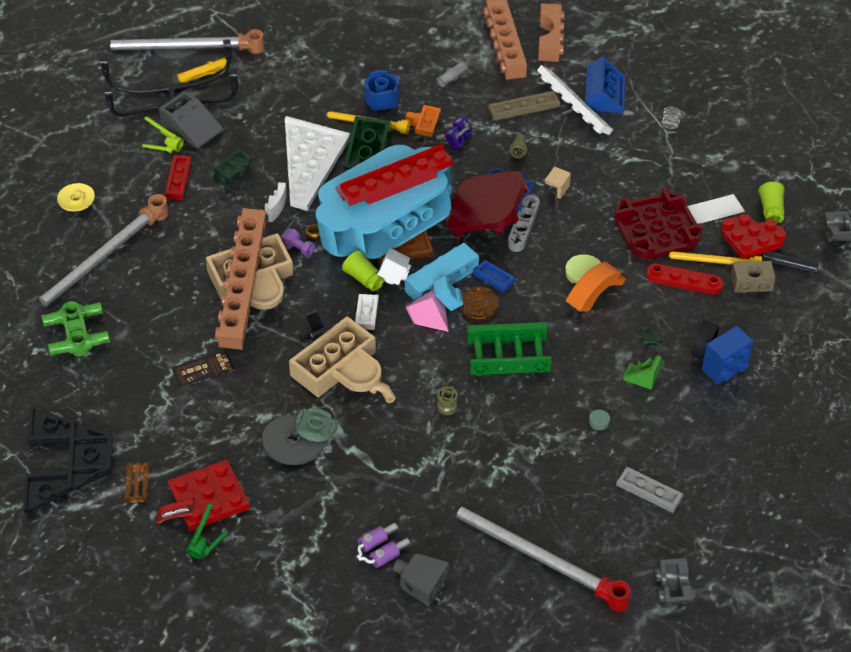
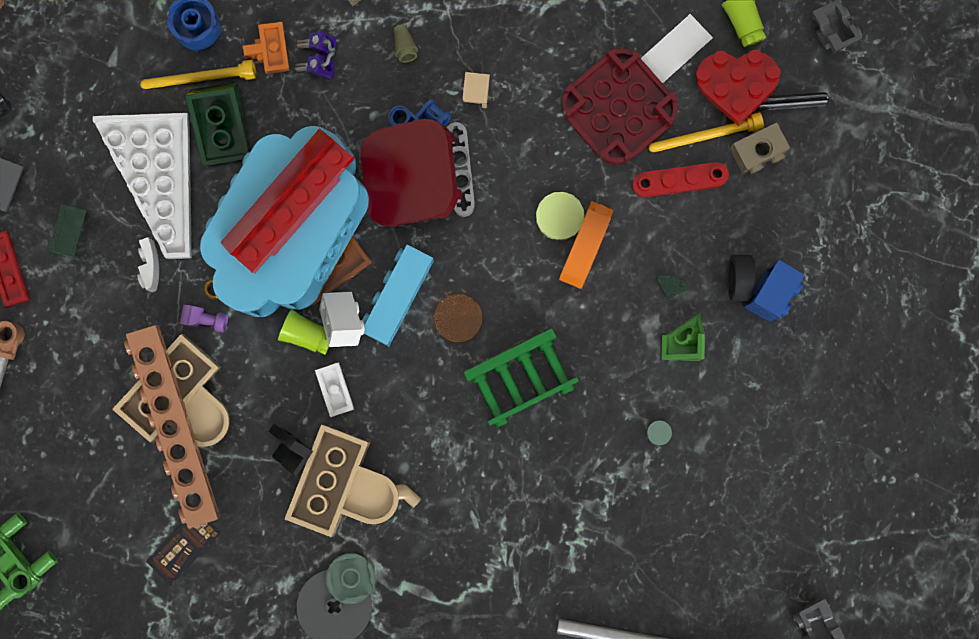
camera: 25 degrees left, 35 degrees up
(428, 312) = (407, 357): bright pink slope -> none
(447, 294) = (419, 329): medium azure piece -> none
(447, 400) = (483, 483): olive wheel -> none
(494, 276) = (458, 268): blue tile -> none
(650, 489) = (747, 505): light grey tile -> none

